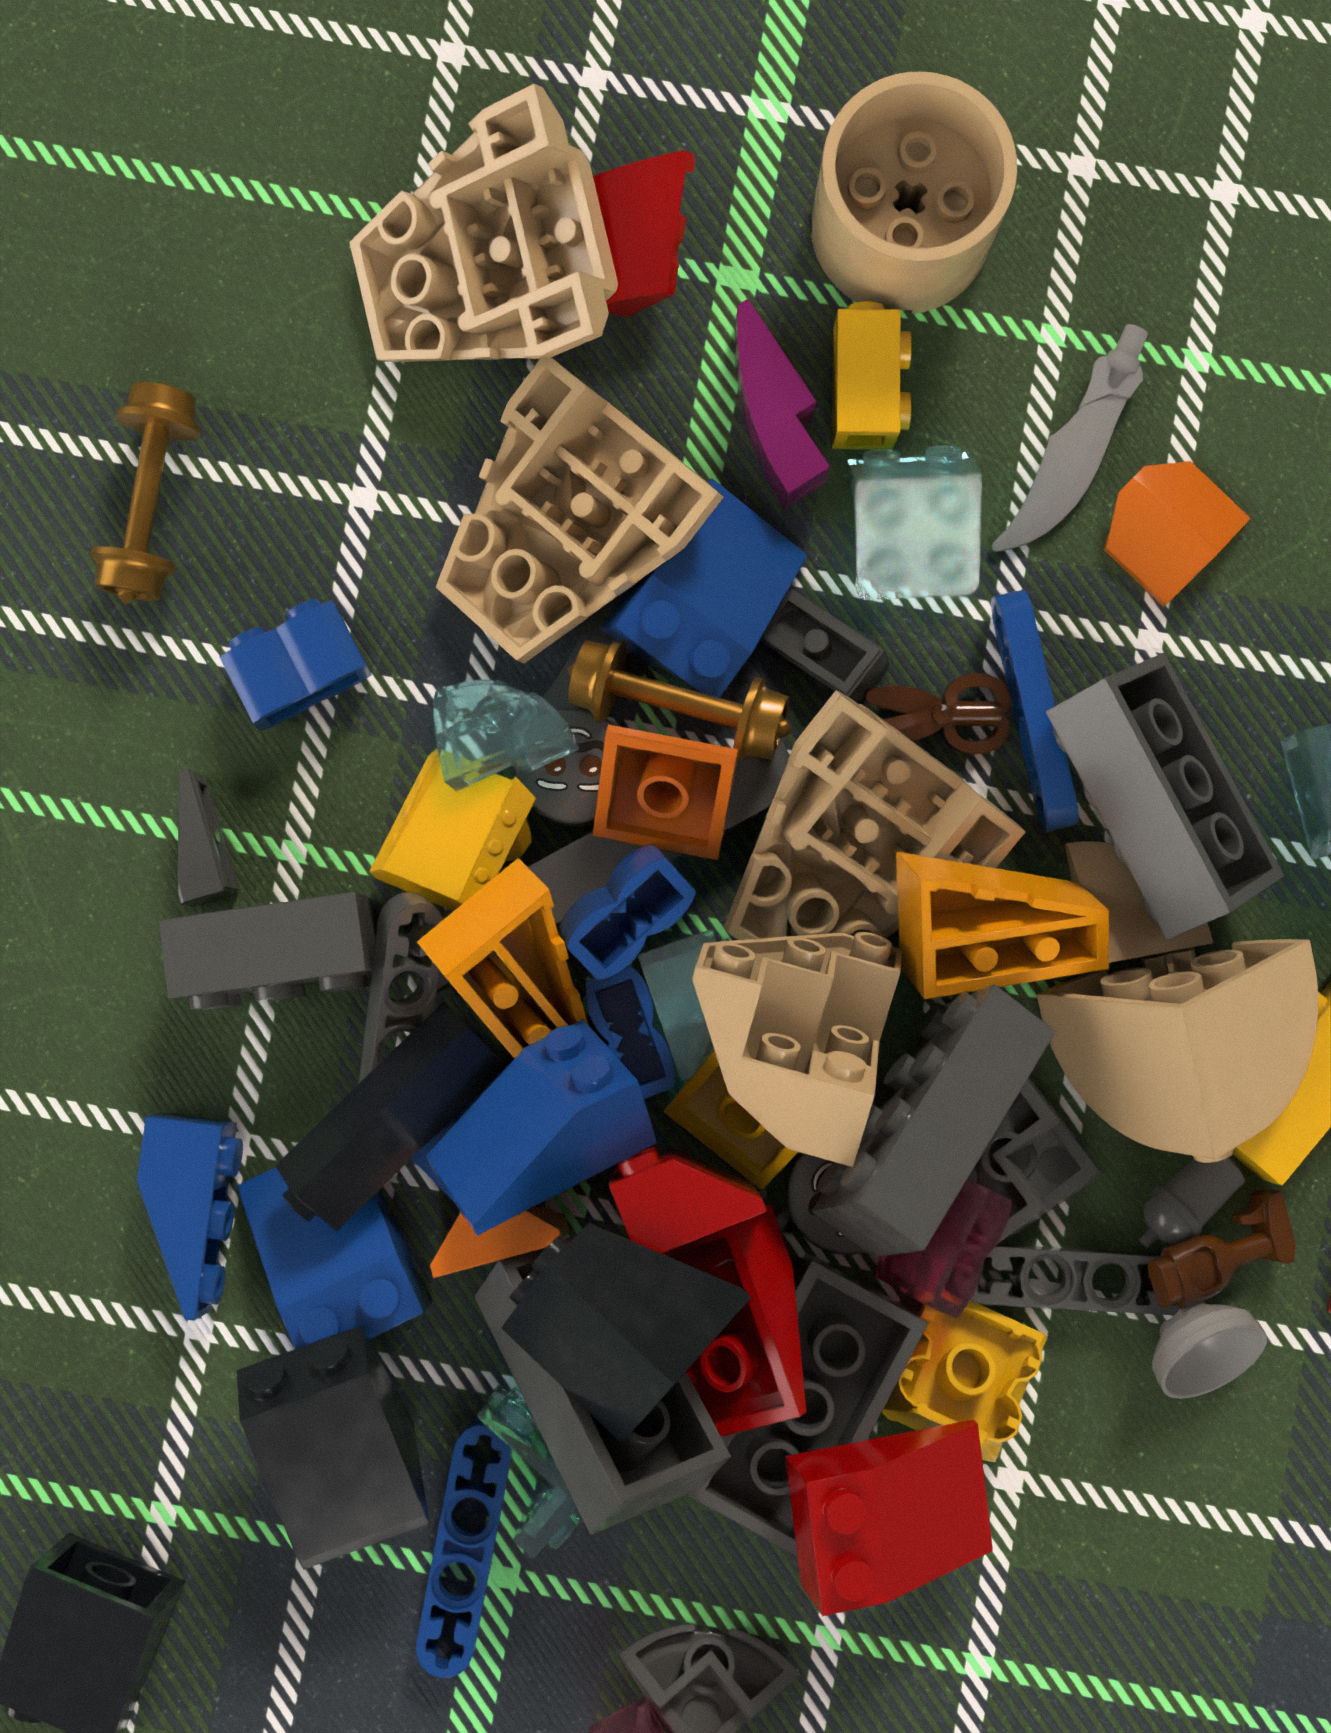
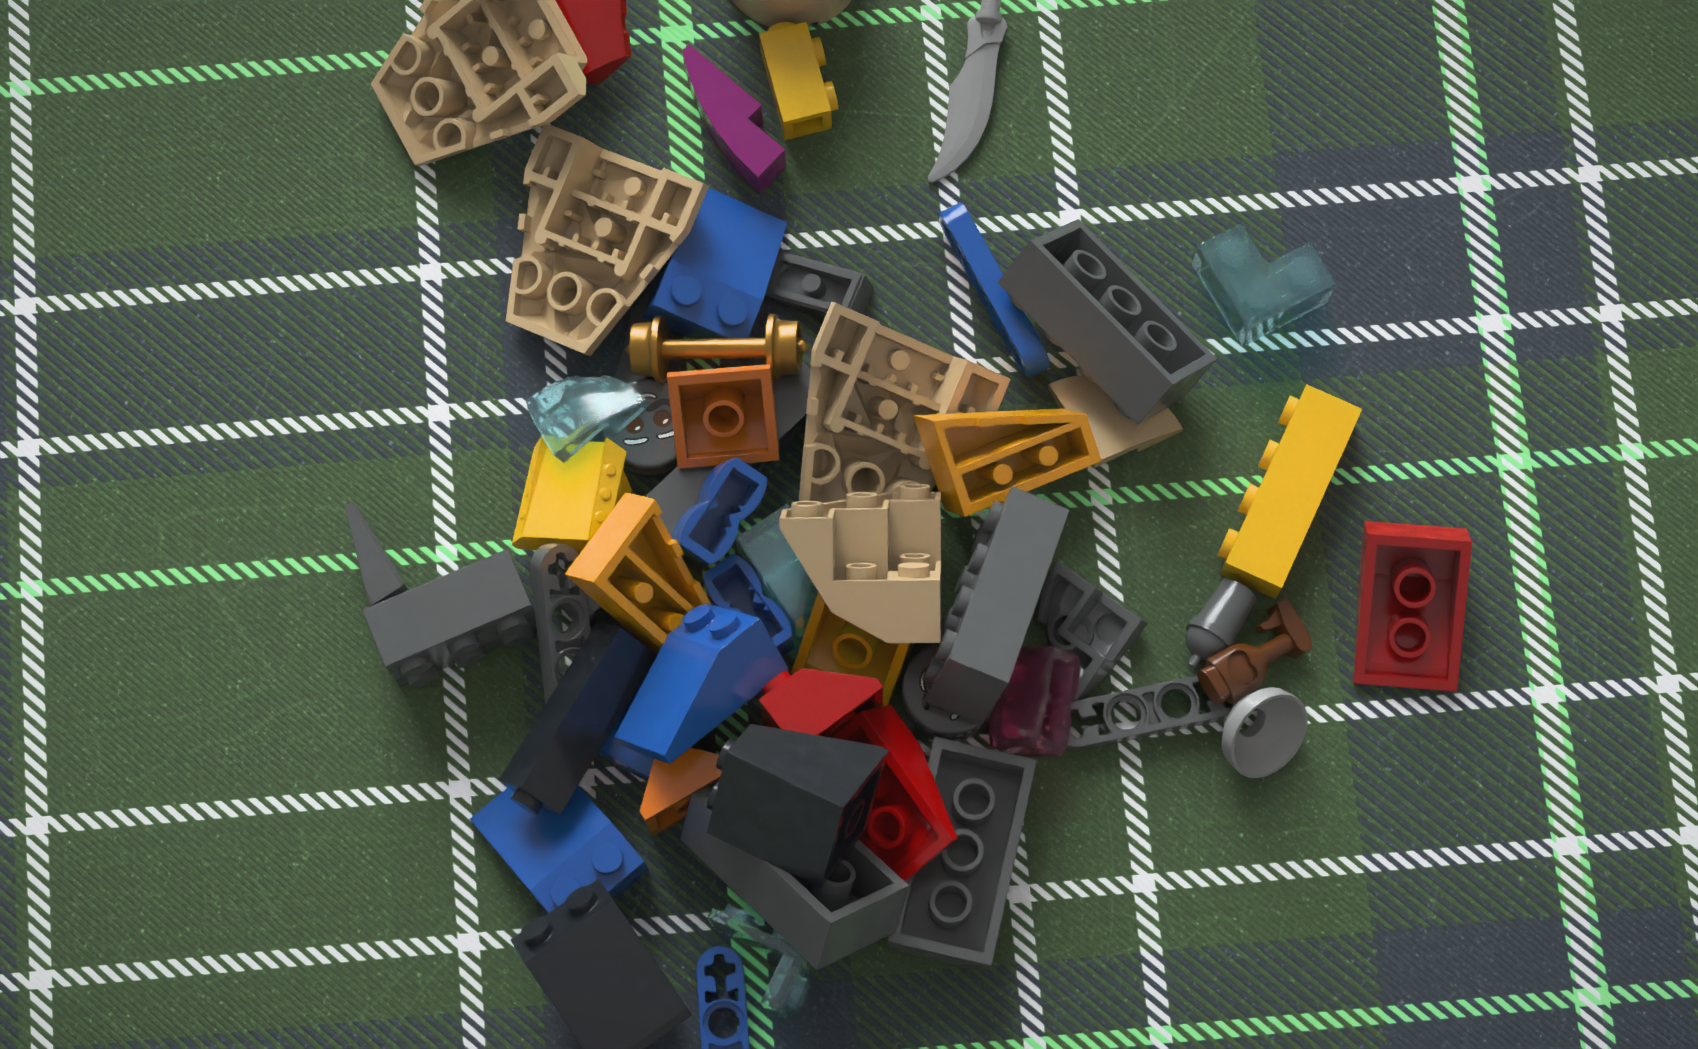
camera: 10 degrees left, 10 degrees down
(161, 415) = (259, 248): pearl gold piece -> none
(185, 1192) = (429, 821): blue slope -> none
(294, 664) = (412, 406): blue brick -> none
(887, 1514) = (1046, 906): red slope -> none
(916, 523) = (863, 177): clear light blue bracket -> none
(930, 714) = (913, 315): reddish brown piece -> none
(968, 1372) = (1082, 809): yellow slope -> none
(1170, 527) = (1060, 128): orange slope -> none
(1190, 1045) = (1179, 499): tan brick -> none

